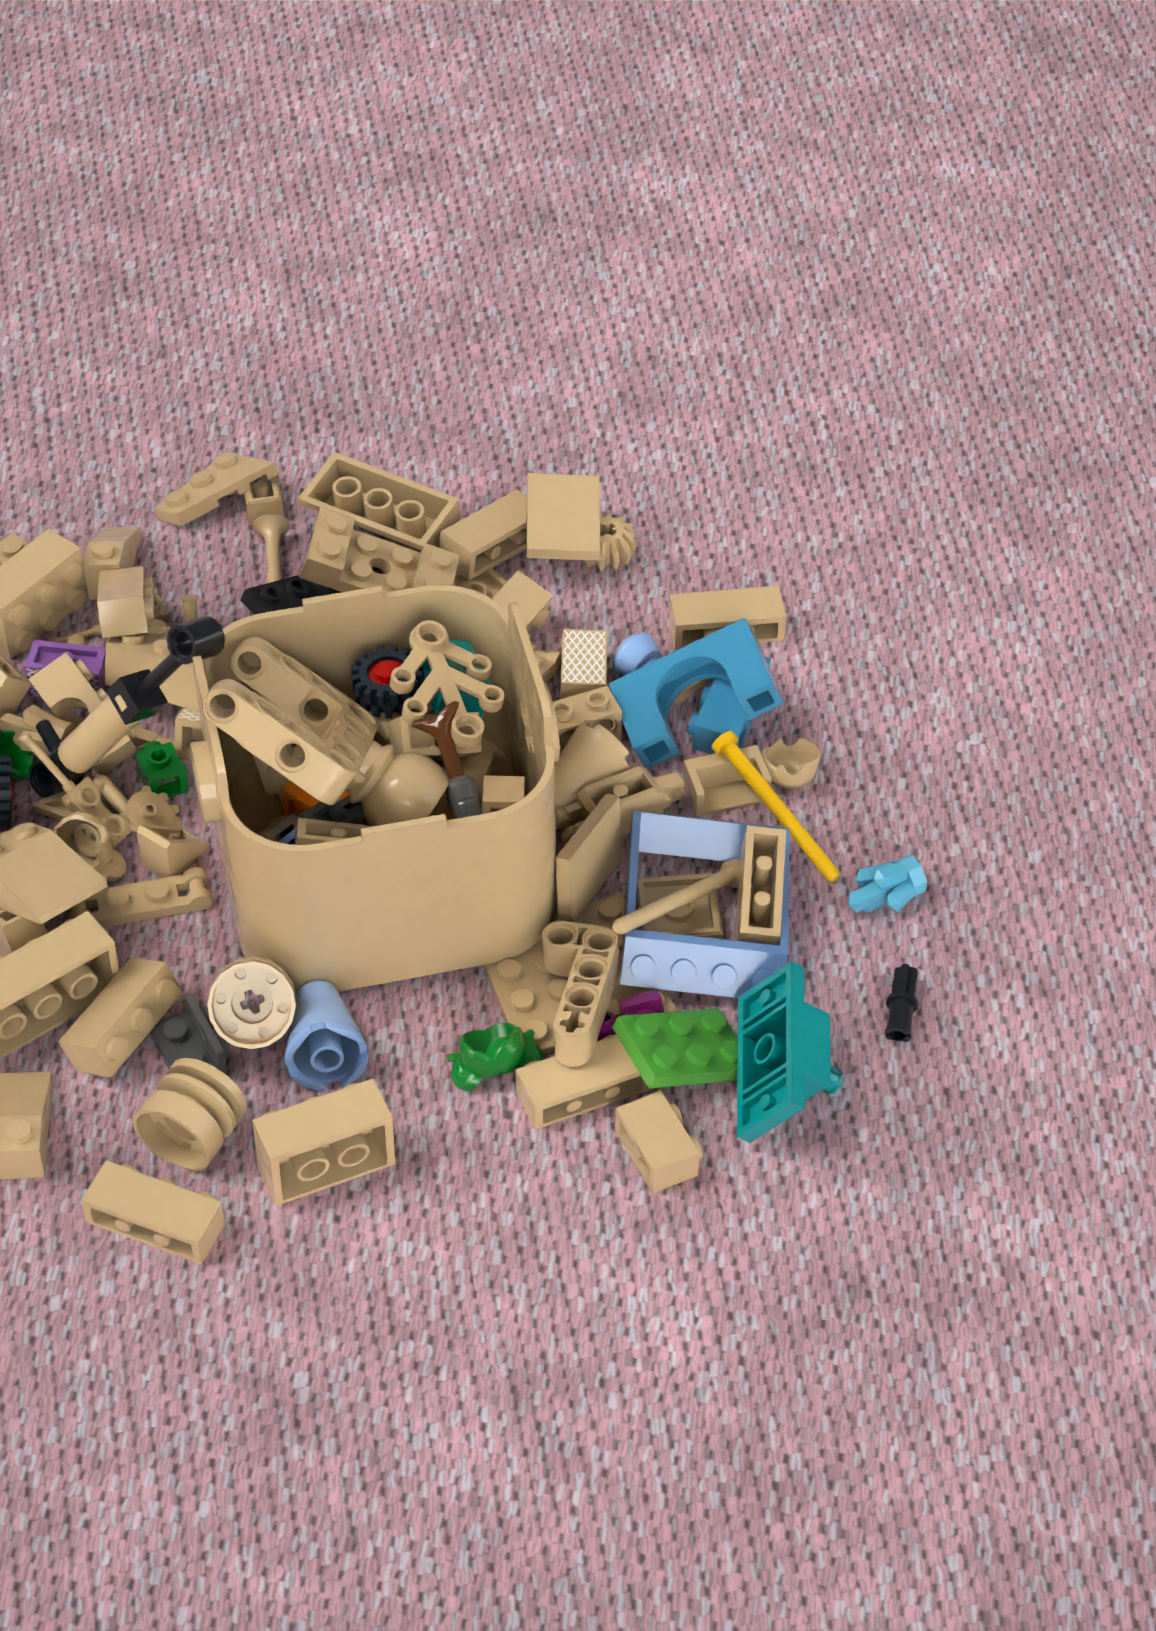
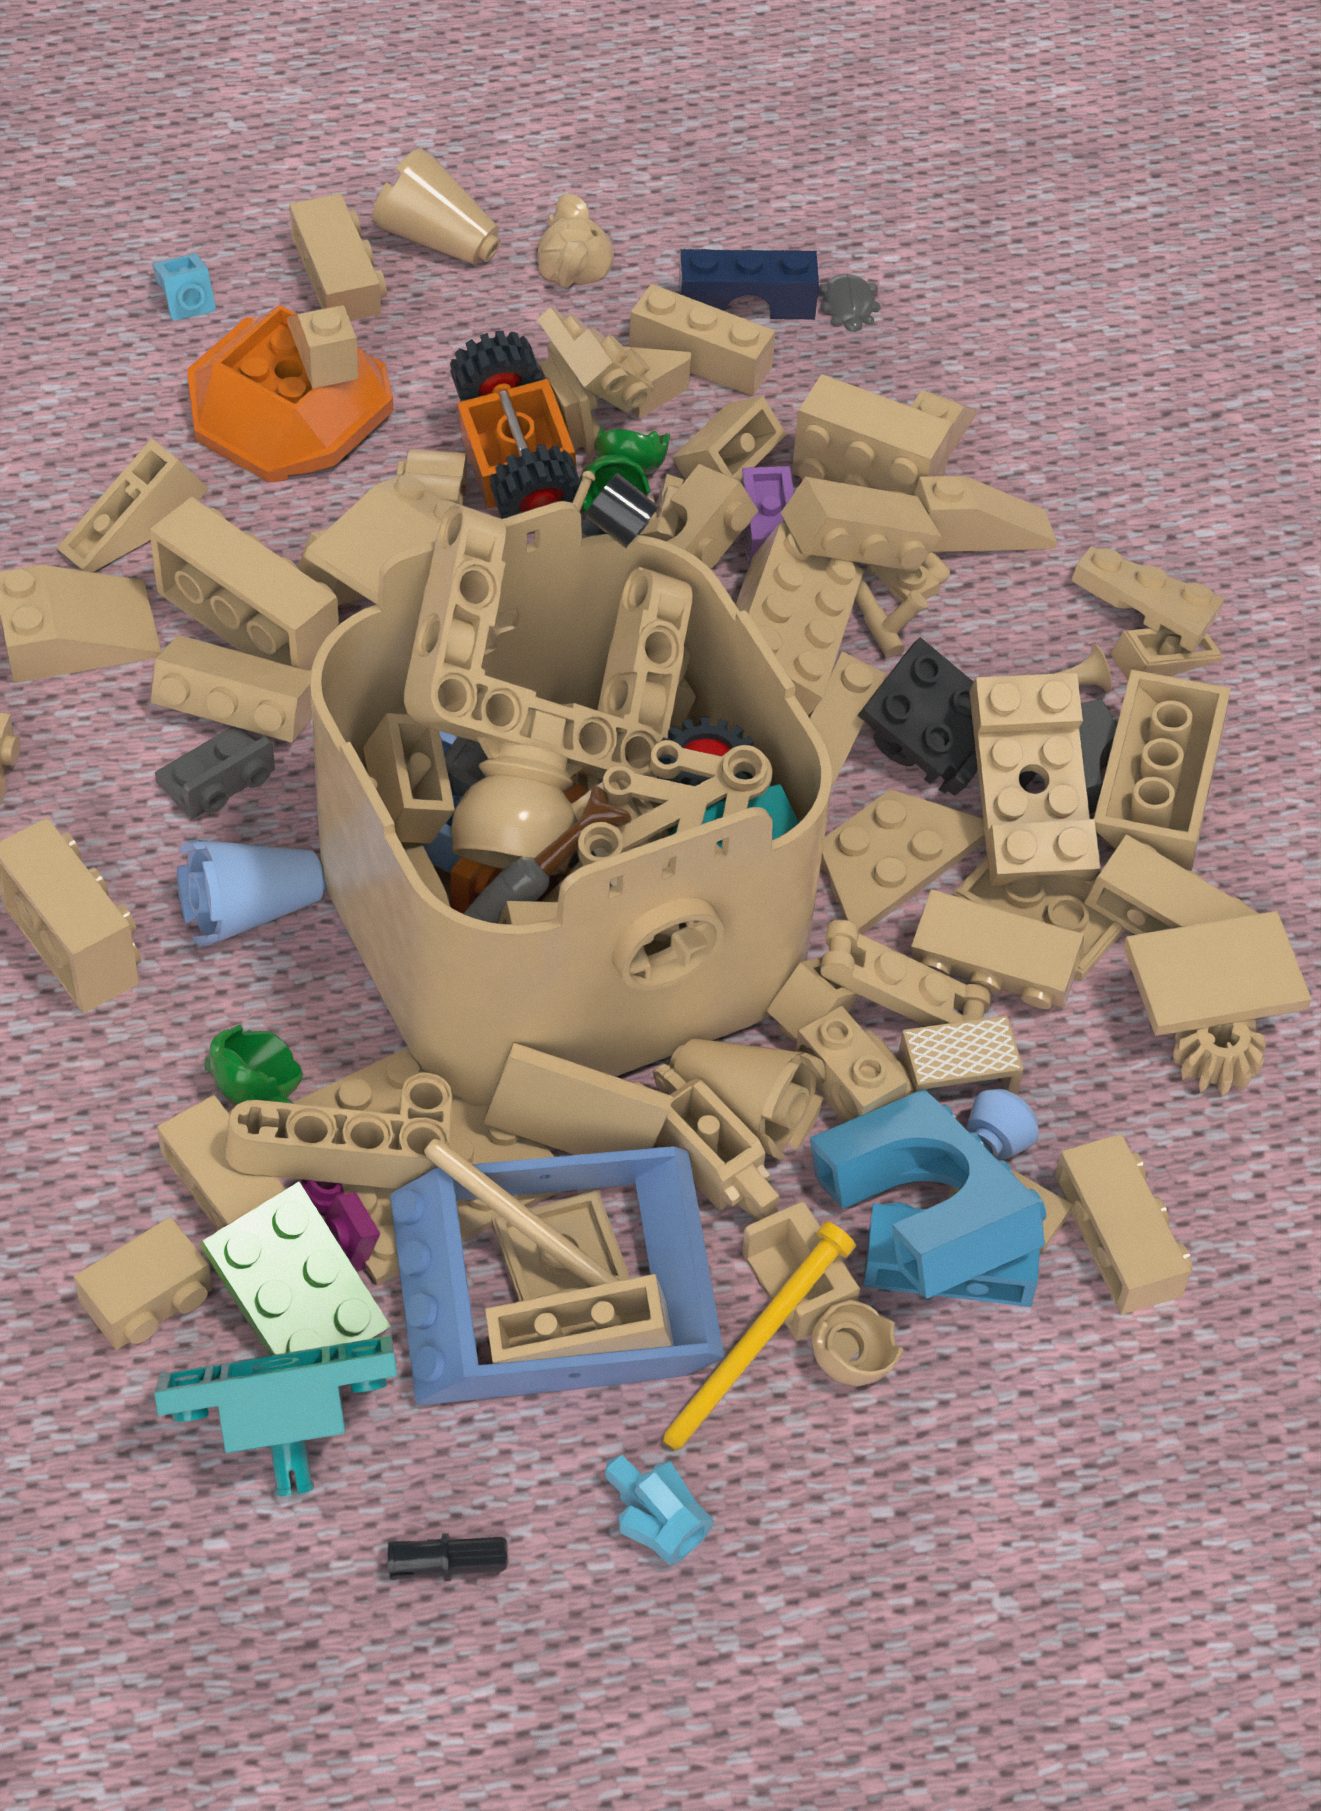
camera: 75 degrees right, 5 degrees up
(190, 1114) = (86, 776): tan wheel -> none
(240, 1023) = (253, 792): tan wheel -> none

